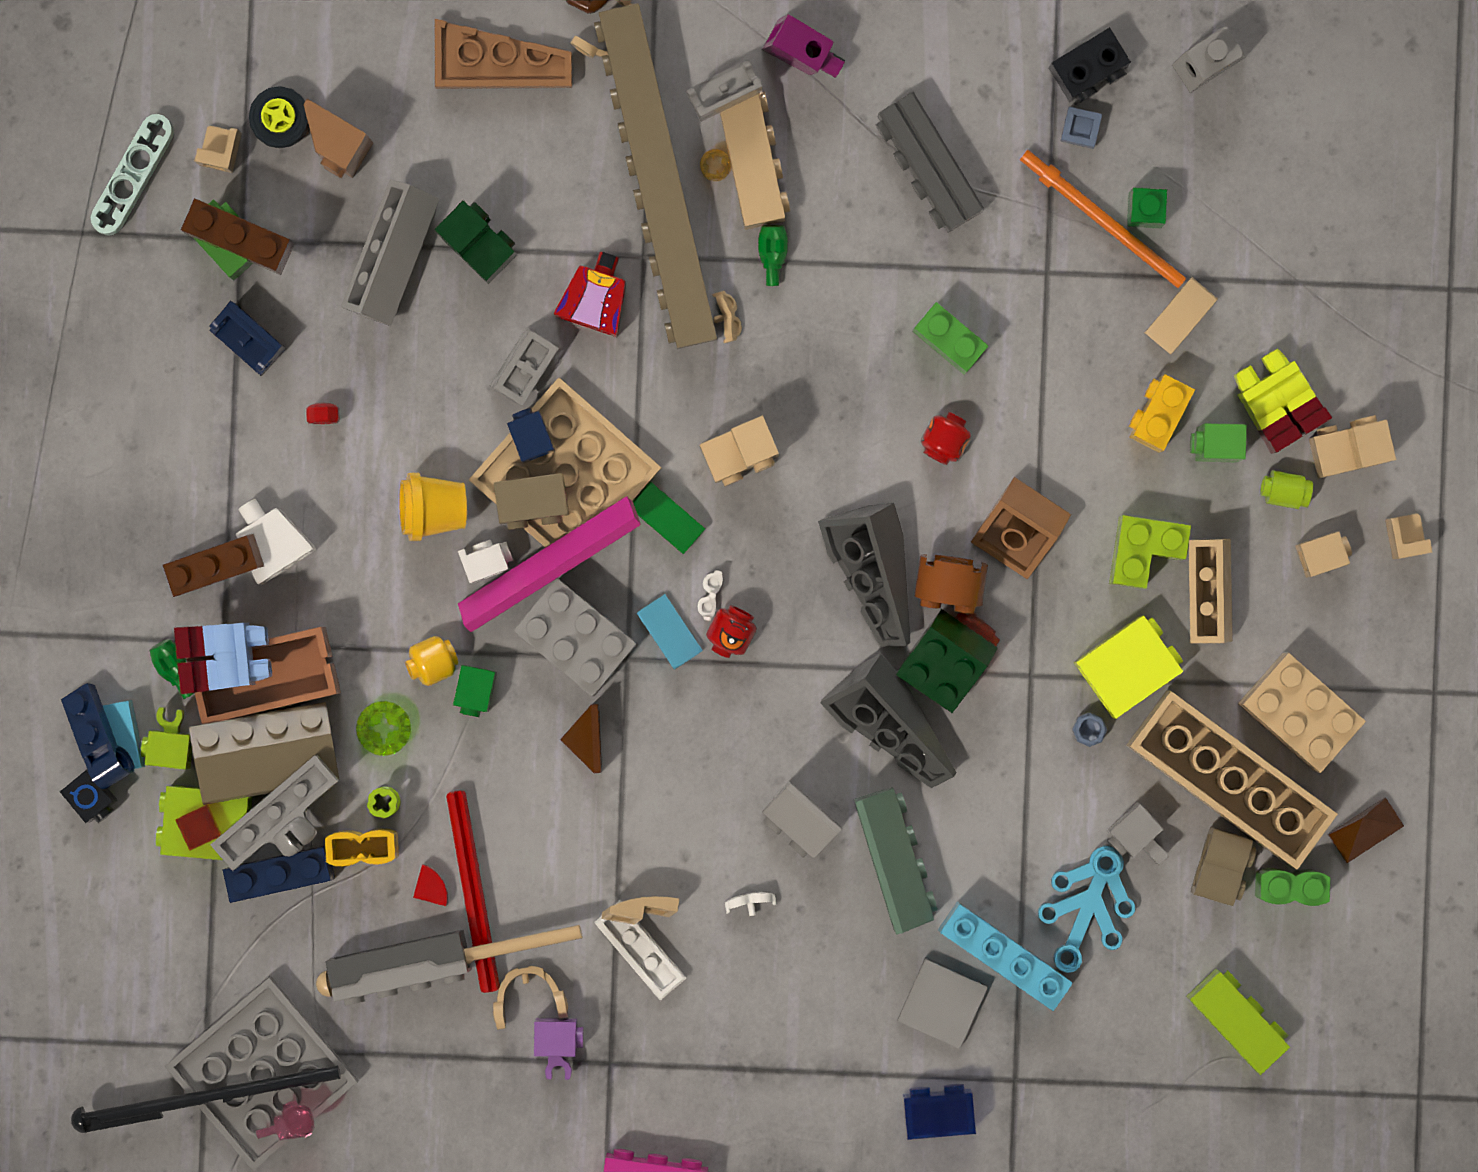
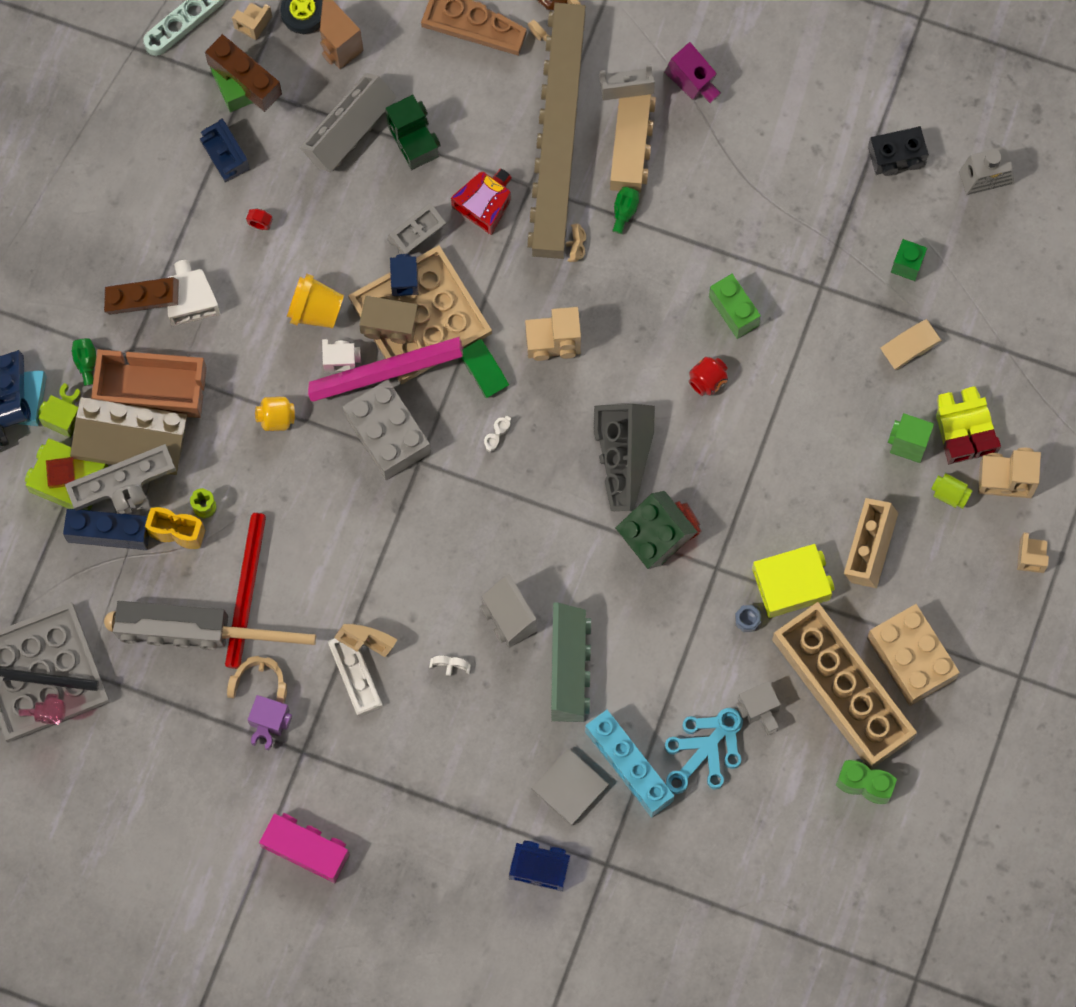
camera: 20 degrees right, 15 degrees down
(232, 654) = (122, 352): light blue hips -> none
(372, 716) = (217, 442): clear neon green gear -> none
(431, 887) = (215, 577): red tile -> none
(474, 690) = (299, 444): green brick -> none
(585, 739) = (369, 504): reddish brown slope -> none
(669, 631) = (457, 450): medium azure slope -> none
(705, 167) = (603, 129): clear yellow bush -> none
(731, 631) = (503, 462): red head -> none
(887, 714) = (599, 559): dark grey wedge -> none
(930, 163) = (760, 182): dark grey brick -> none
(950, 582) = (678, 474): dark orange brick -> none
(1021, 528) = (743, 456): medium nougat slope -> none
(1051, 177) = (845, 220): orange bar -> none
(1081, 127) = (878, 192): sand blue plate -> none
(1140, 540) = (832, 492): lime brick -> none
(1161, 413) = (874, 406): yellow brick -> none
(1223, 867) = (817, 750): dark tan brick -> none
(1239, 1020) = (793, 871): lime brick -> none
(1324, 554) = (965, 545): tan brick -> none
(1365, 830) = (936, 760): reddish brown slope -> none

